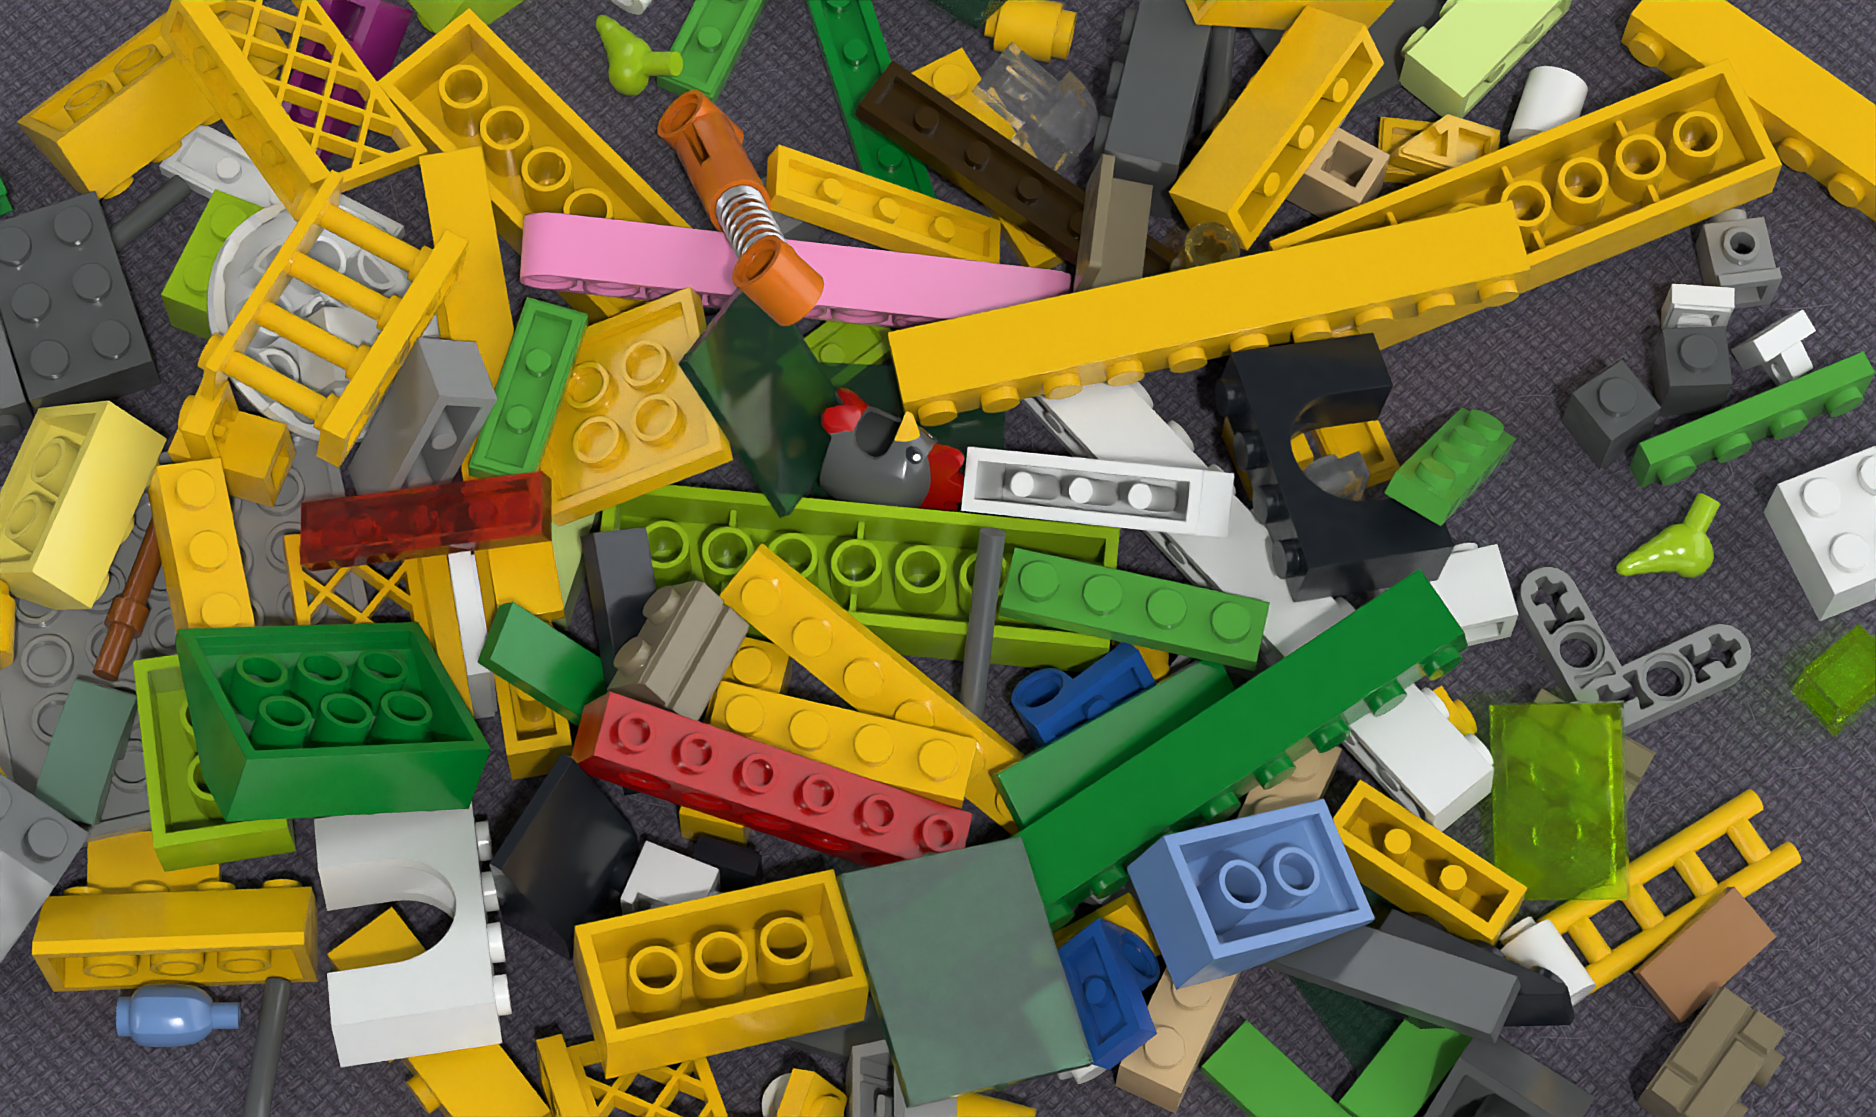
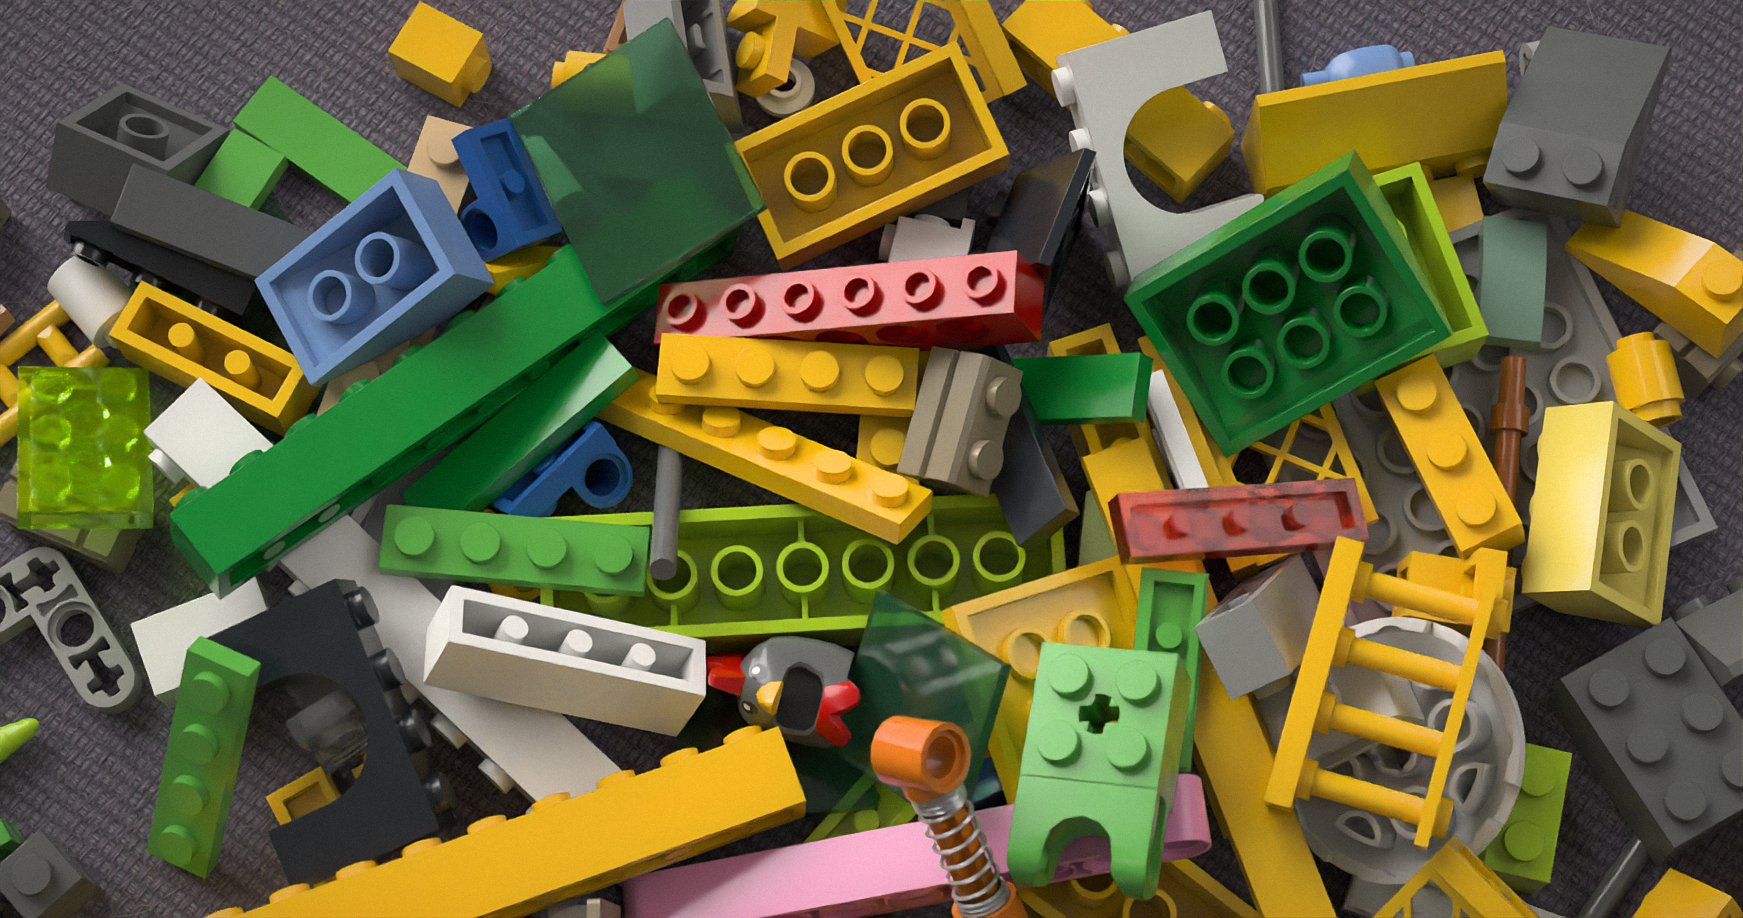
camera: 175 degrees right, 5 degrees up
(618, 261) = (1103, 782): none -> bright green brick

